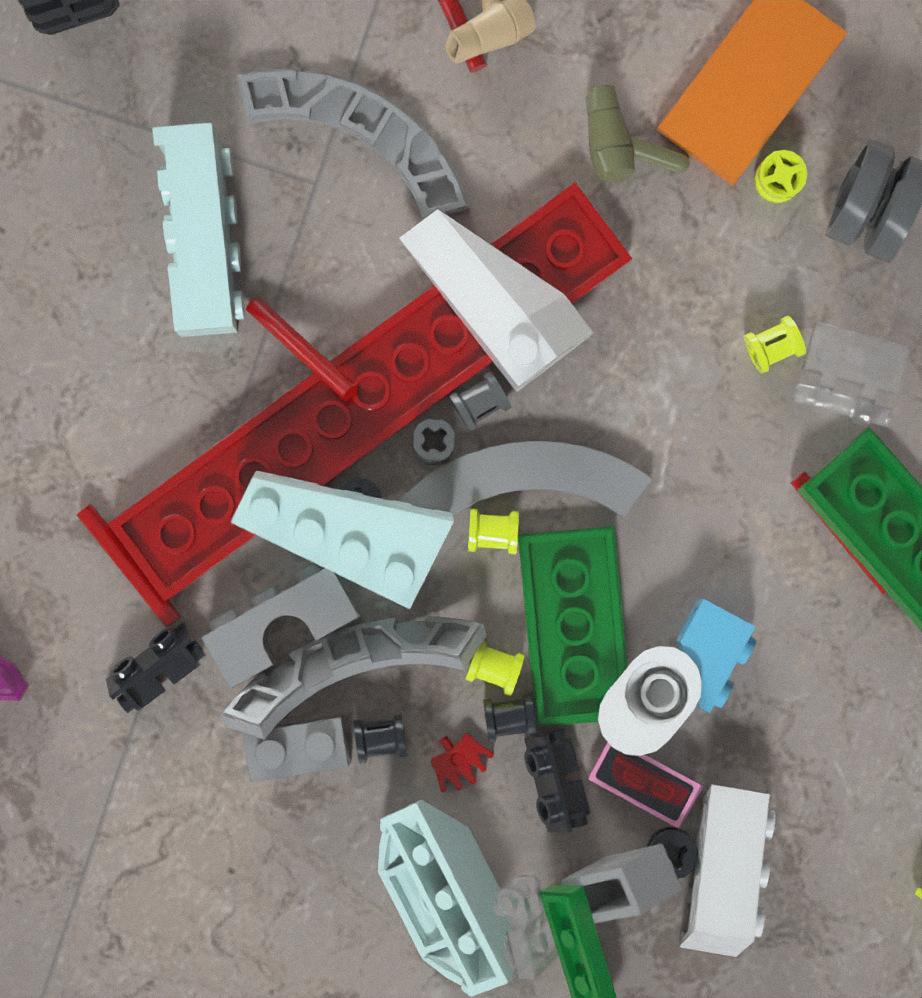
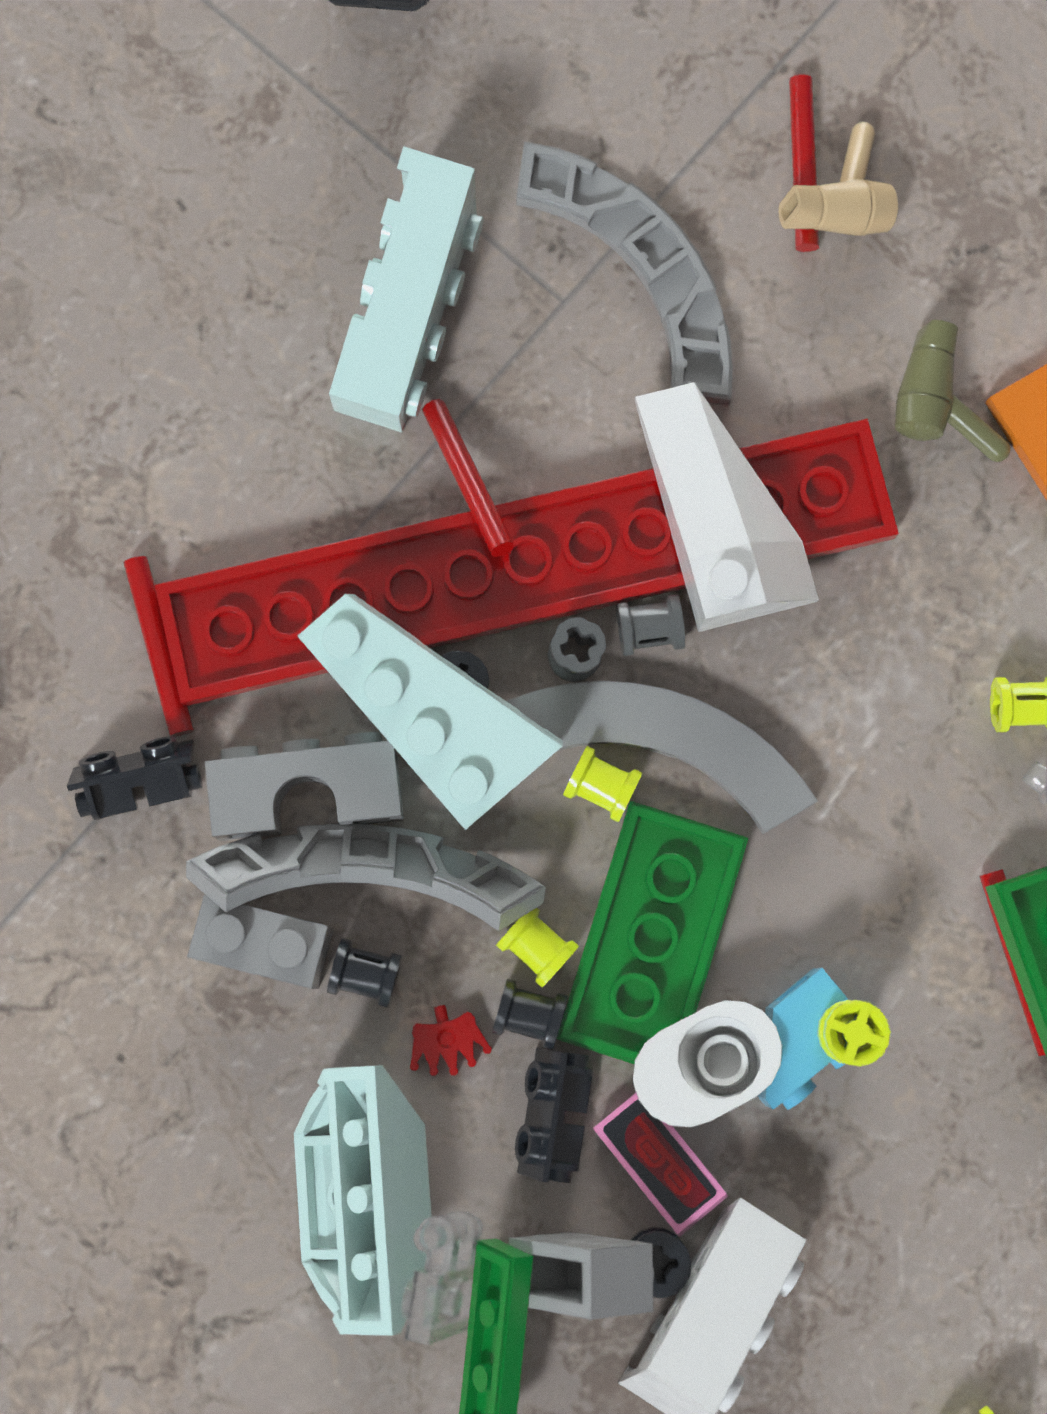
camera: 20 degrees right, 5 degrees down
(753, 636) = (865, 1036): none -> neon yellow wheel

